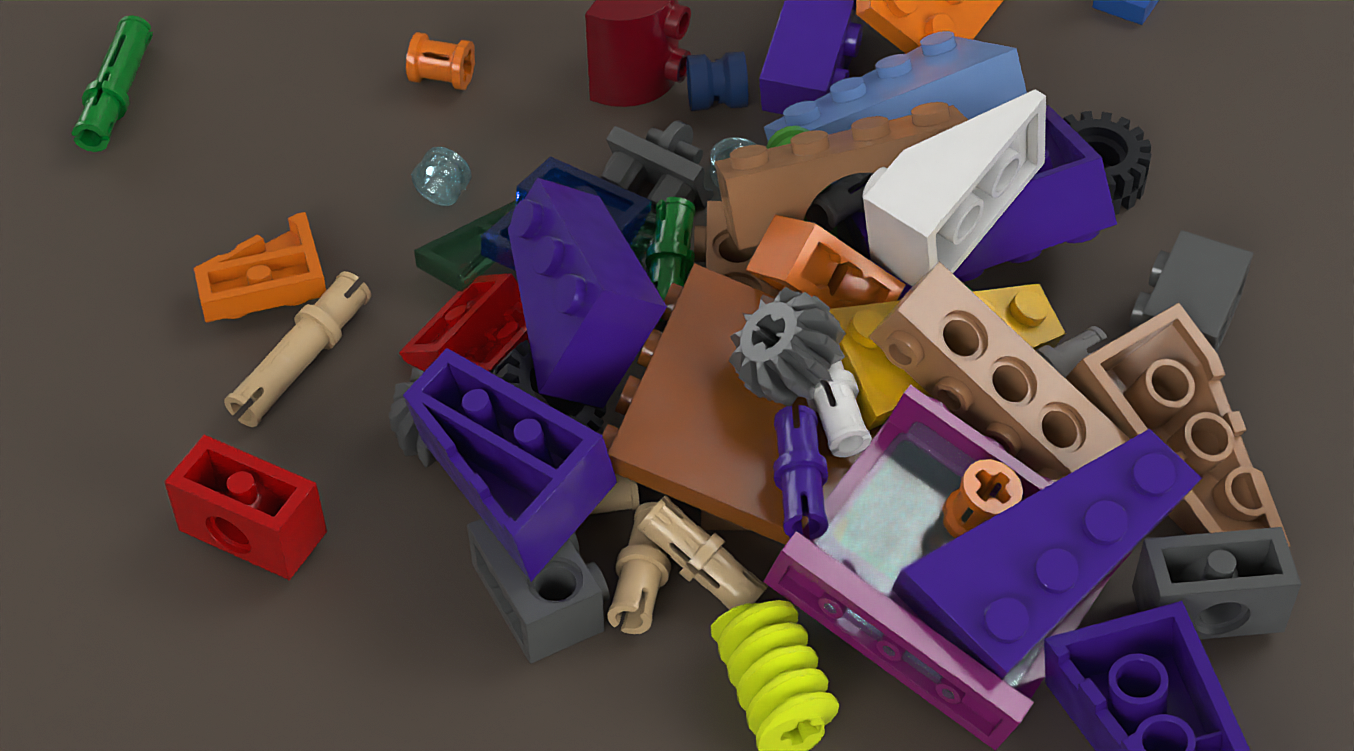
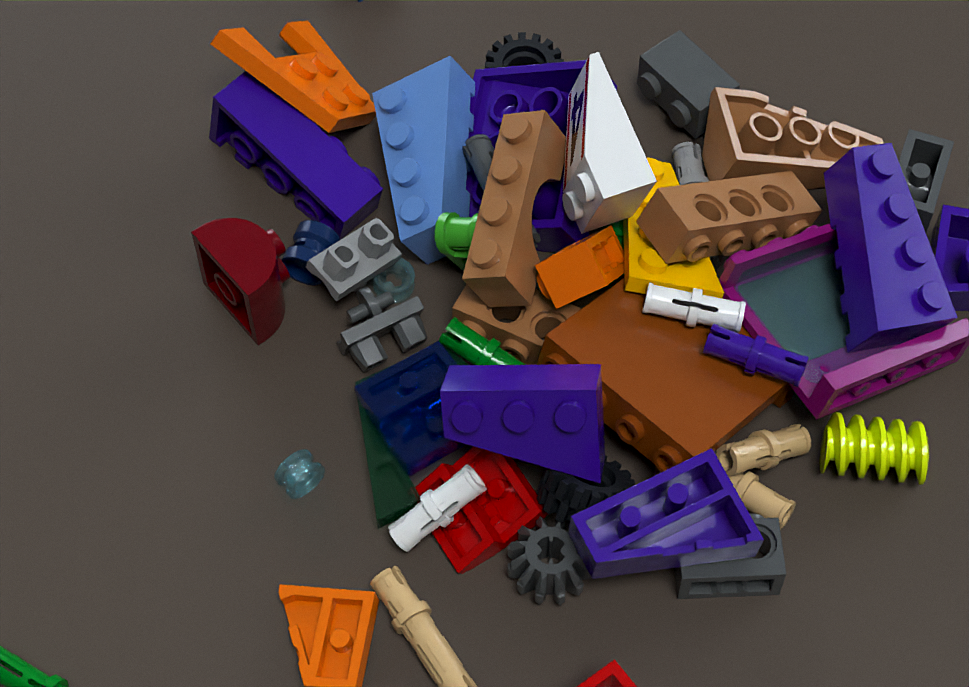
camera: 65 degrees left, 10 degrees up
(440, 61) = (156, 434): orange bush -> none
(472, 290) = (437, 508): none -> white pin
(718, 105) = (355, 259): none -> light grey hips
(787, 347) = (661, 296): dark grey gear -> none
(974, 494) = (818, 263): orange bush -> none

